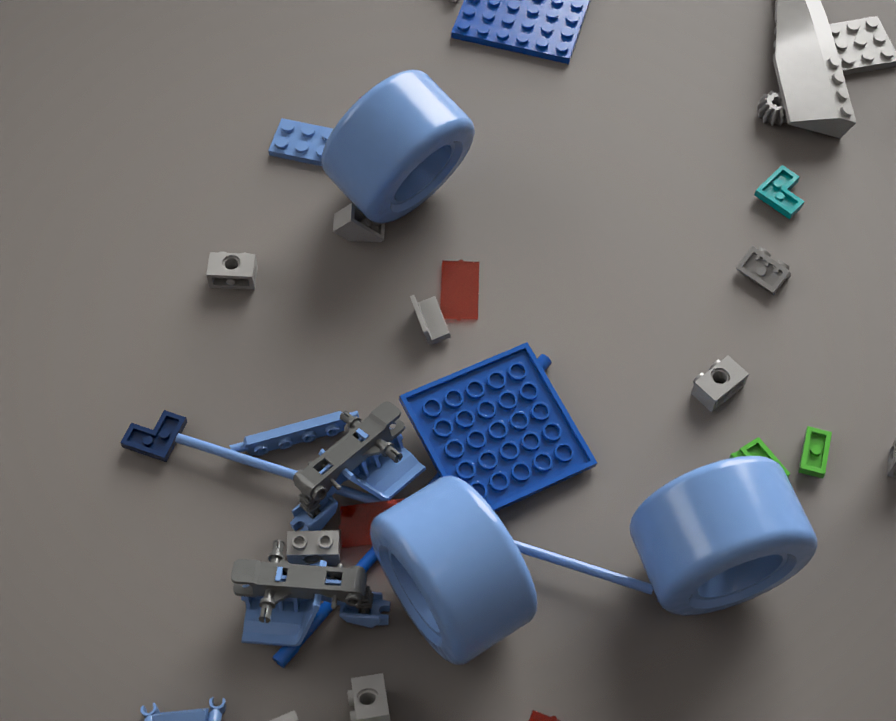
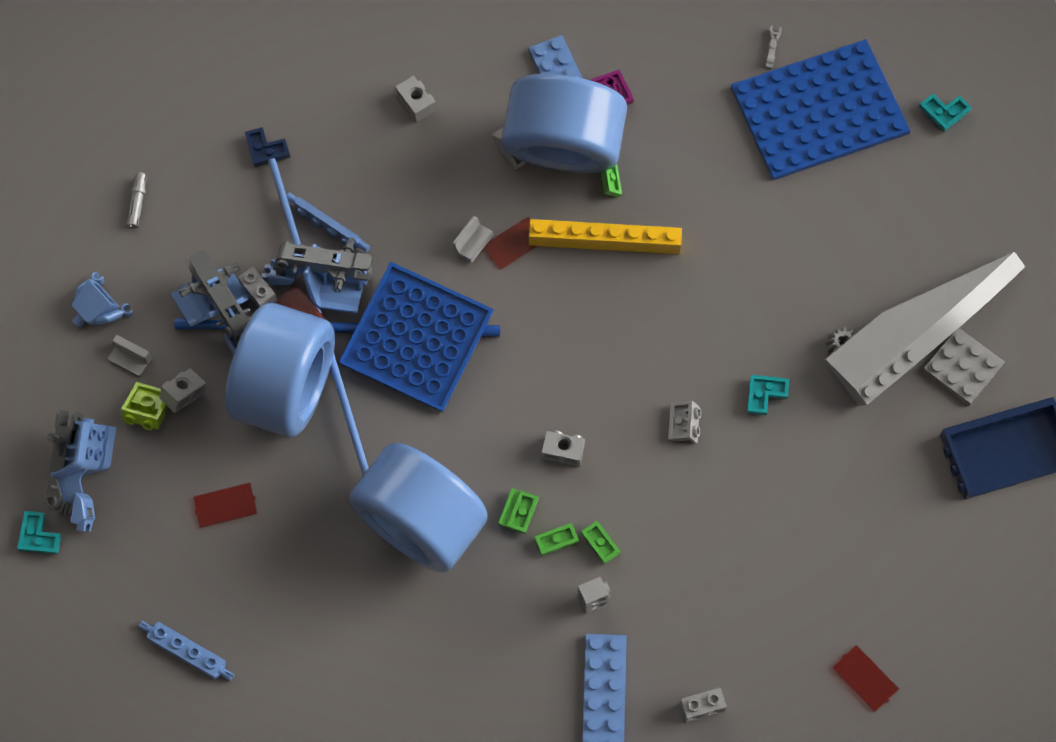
camera: 55 degrees right, 10 degrees up
(87, 597) = (137, 192): none -> light grey pin
(470, 175) = (611, 182): none -> bright green plate
(520, 212) = (605, 236): none -> yellow brick
(845, 416) = (600, 542): none -> bright green plate

